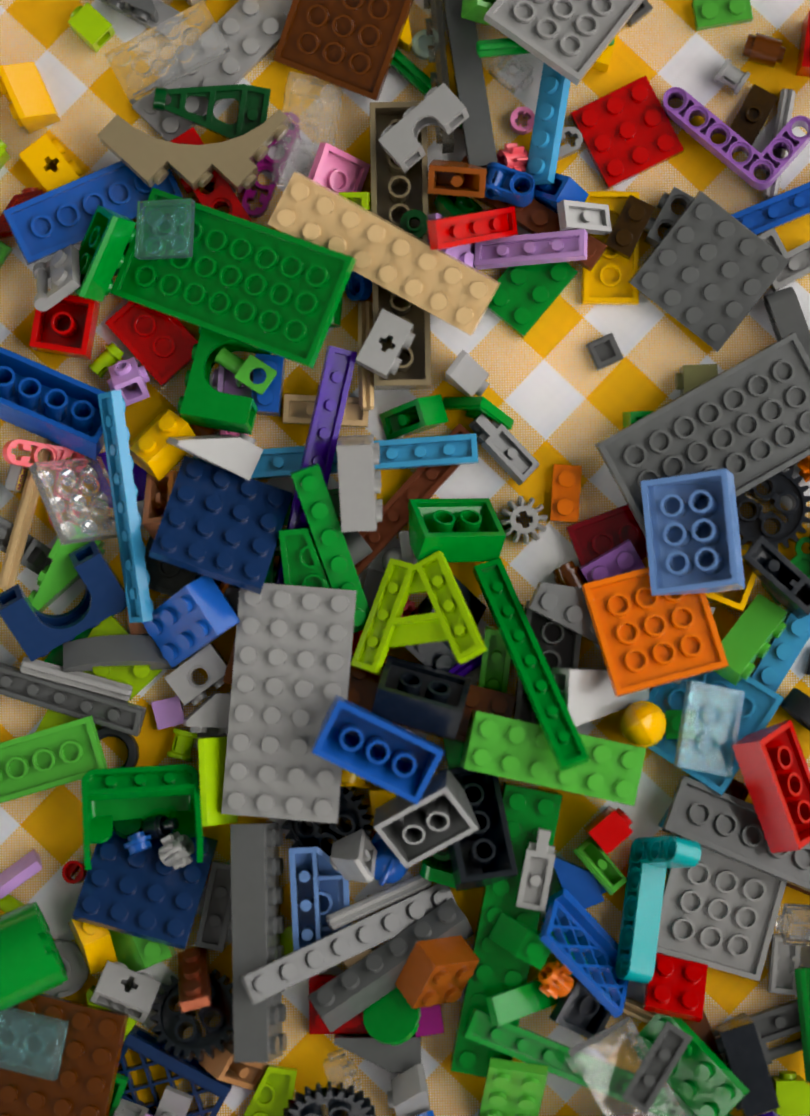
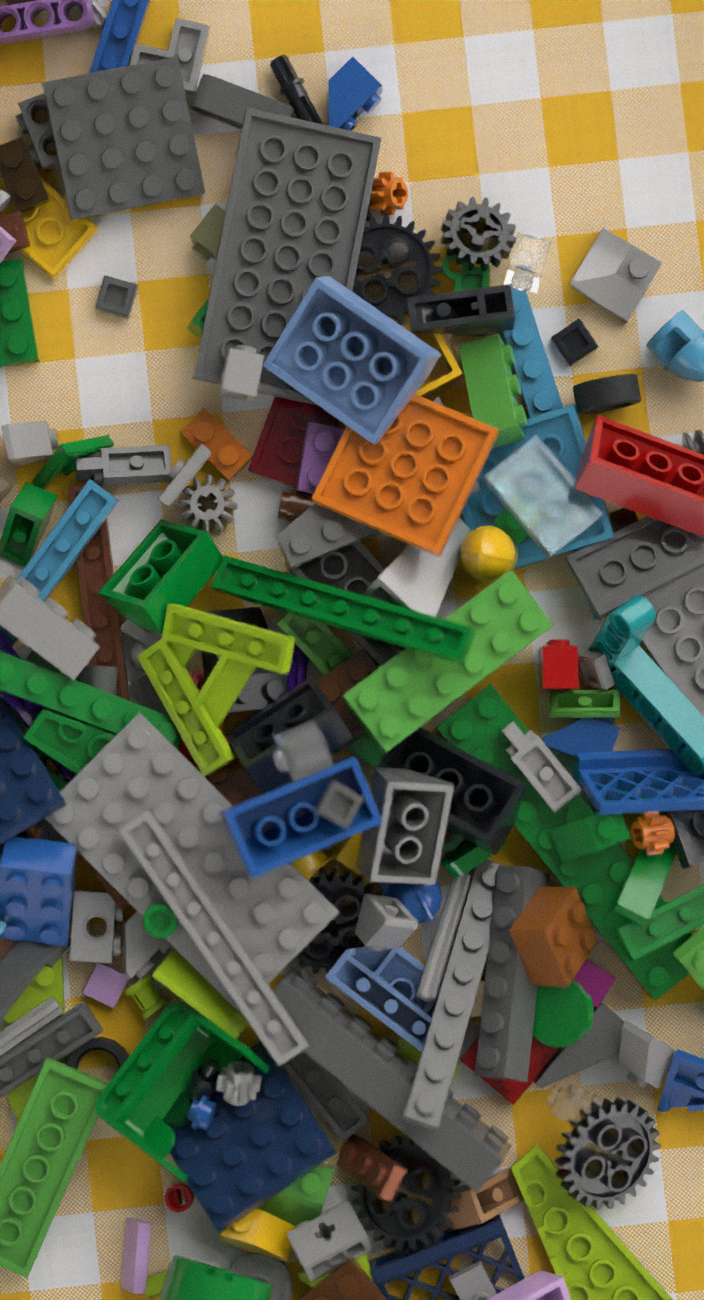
camera: 50 degrees left, 0 degrees up
(237, 715) = (160, 920): none -> green tile
(254, 759) = (214, 938): none -> light grey plate
(405, 768) = (339, 804): none -> dark grey tile
(419, 715) = (302, 751): none -> clear brick
(529, 488) = (183, 473): none -> light grey plate
(624, 472) = (241, 373): none -> light grey brick
(627, 854) = (595, 669): none -> light grey tile

